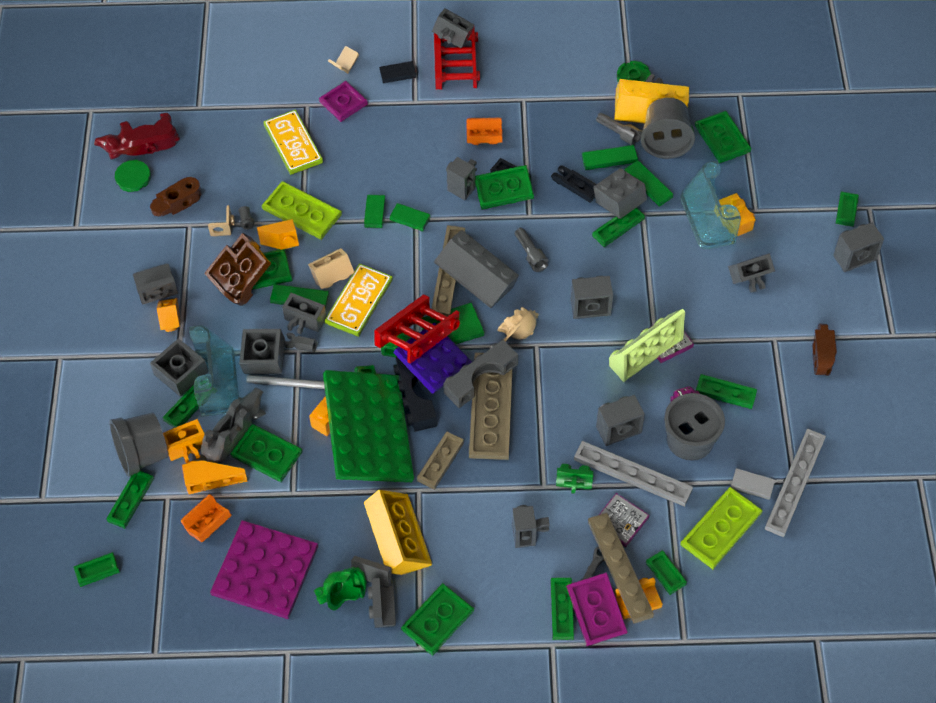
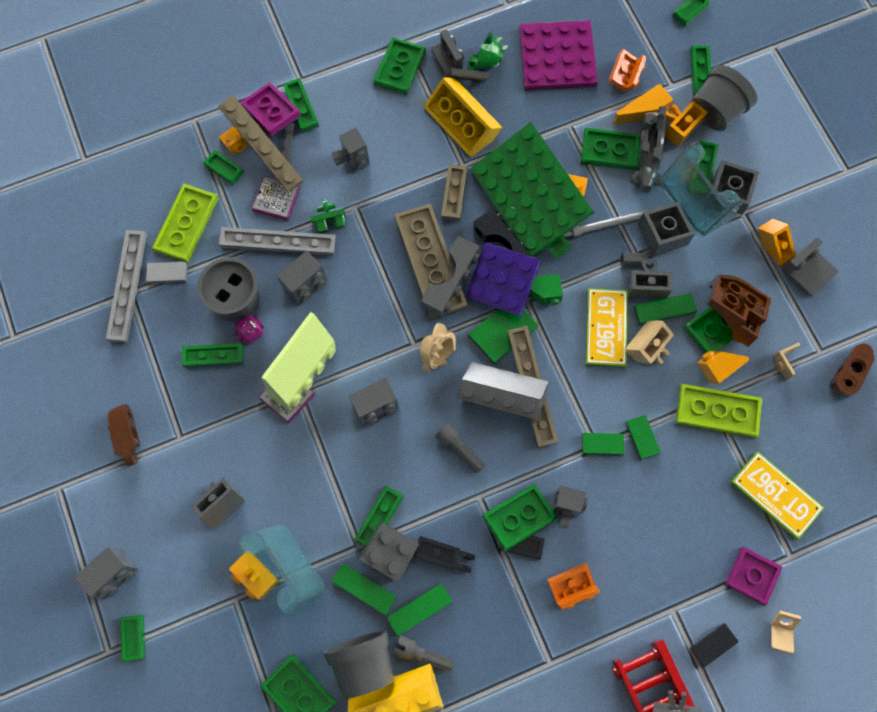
camera: 160 degrees right, 15 degrees up
(246, 220) = (768, 376): dark grey pin -> none
(412, 315) = (542, 306): red fence -> none

